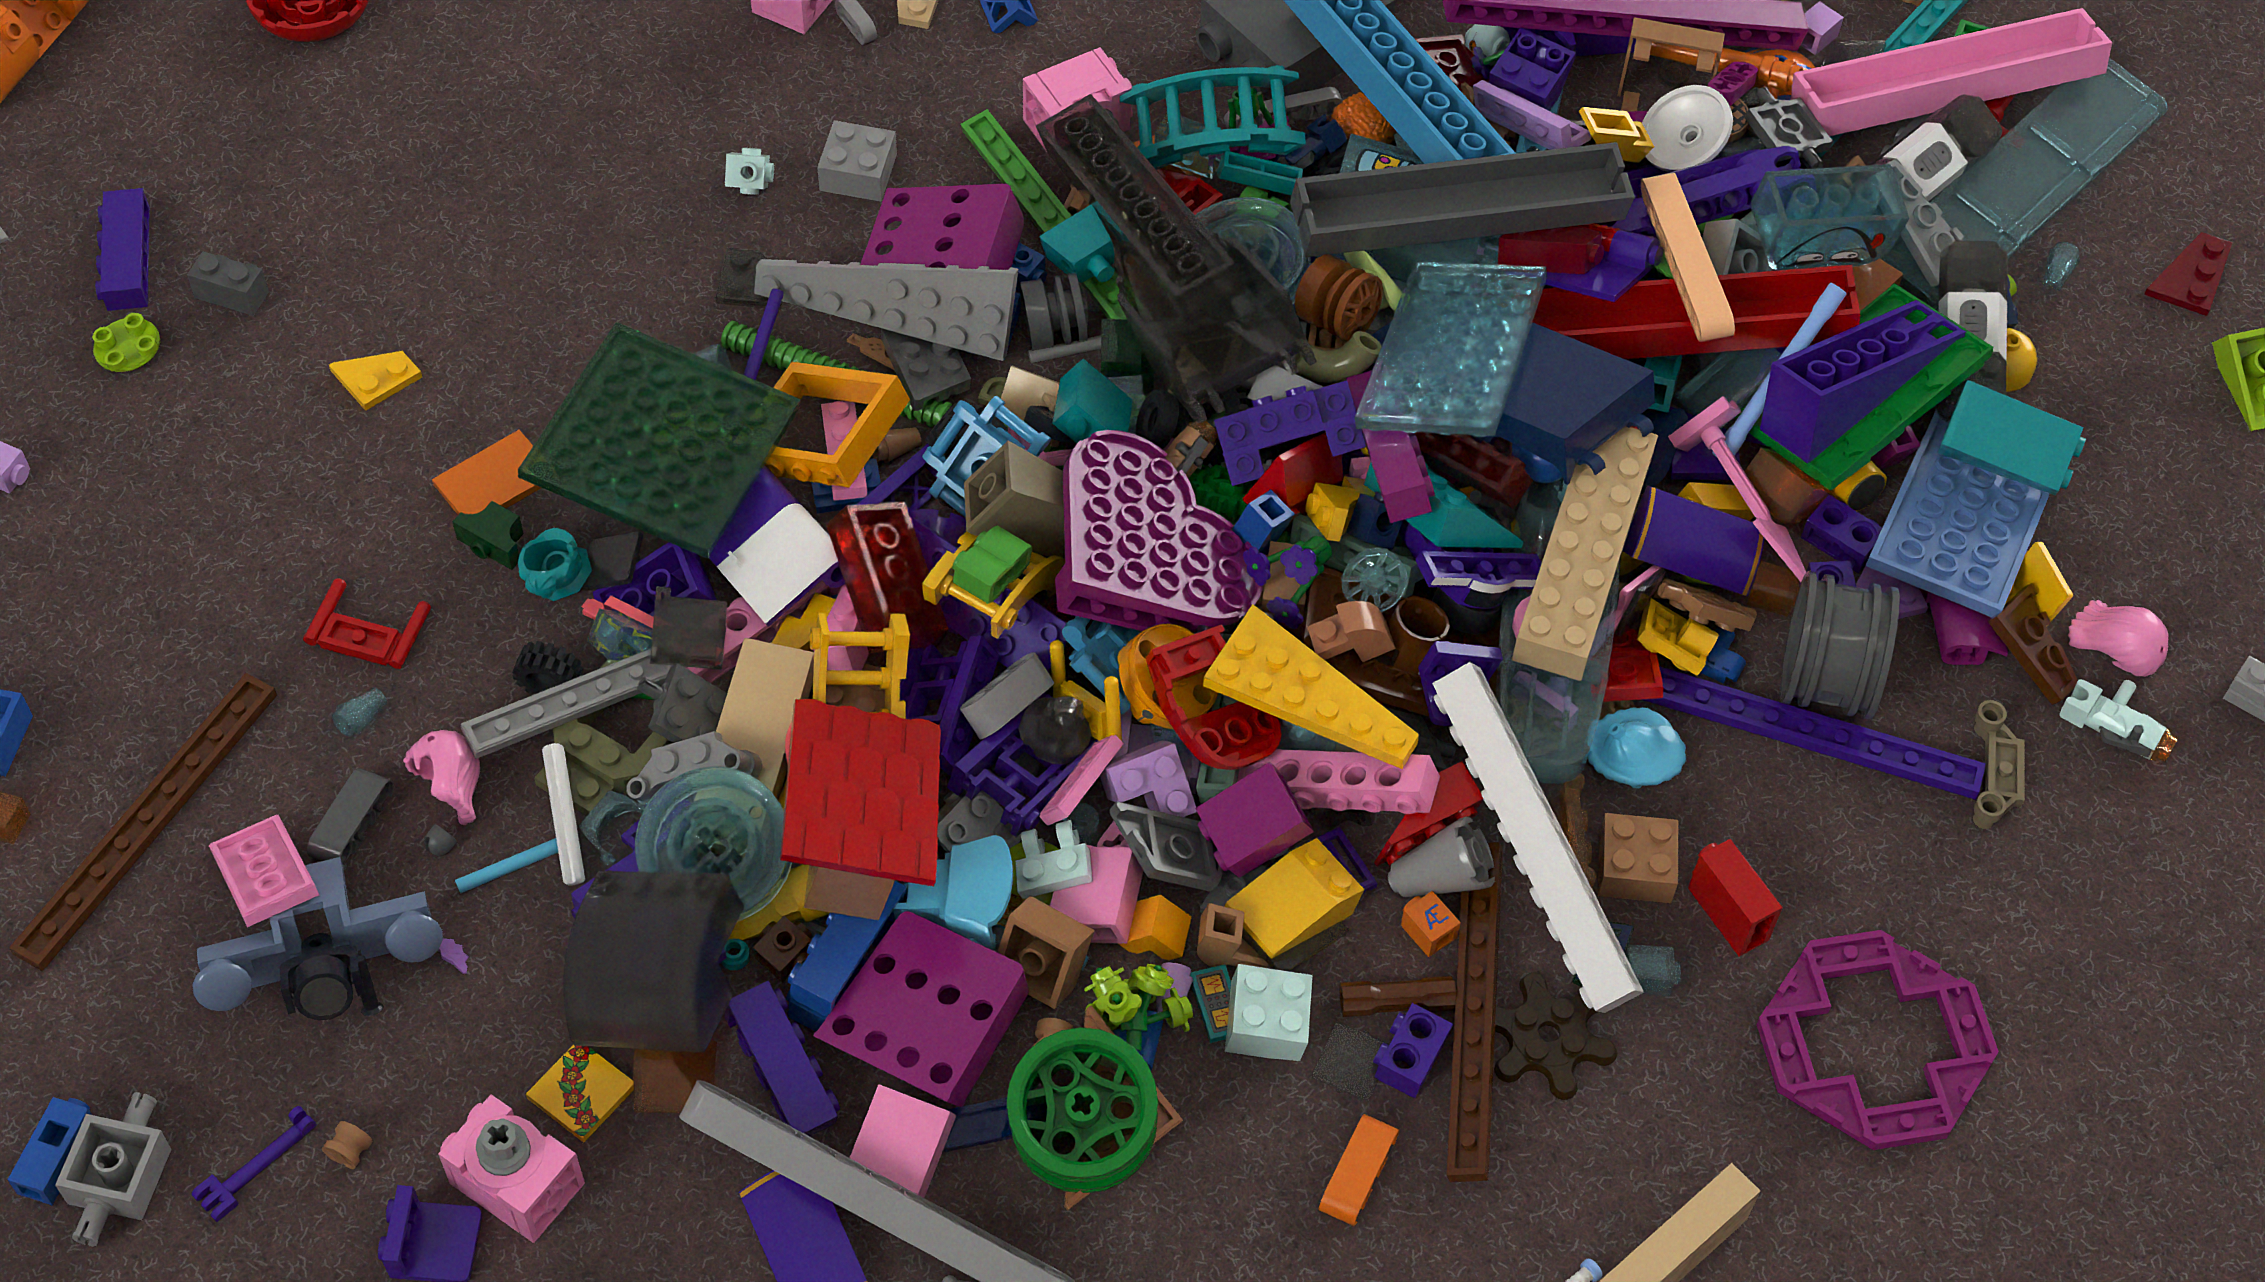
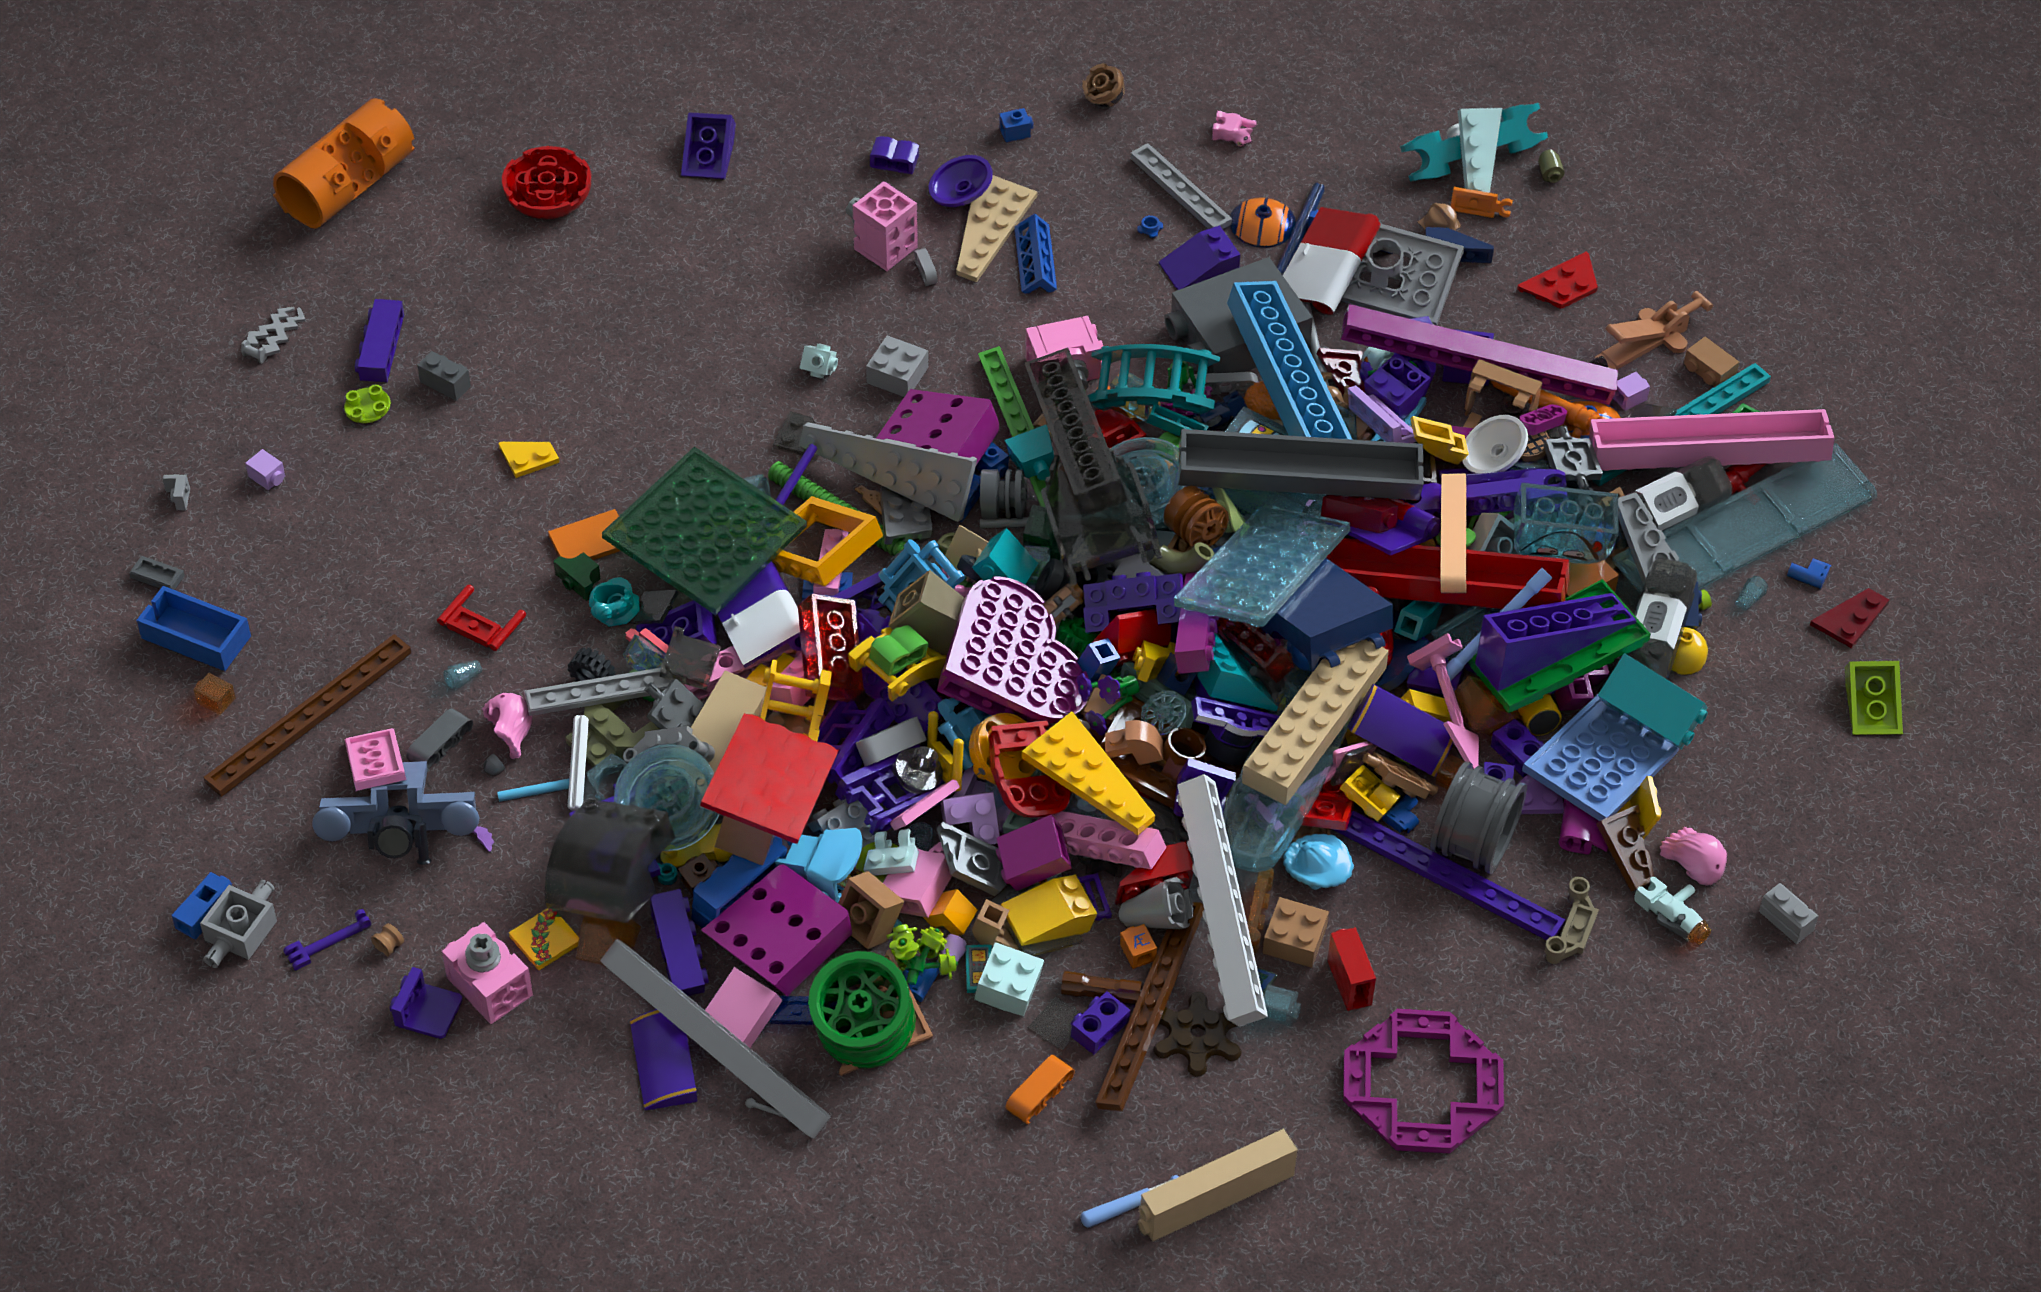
camera: 15 degrees right, 5 degrees down
(897, 443) = (868, 564): medium nougat cone -> none
(2128, 227) = (1814, 575): none -> blue piece

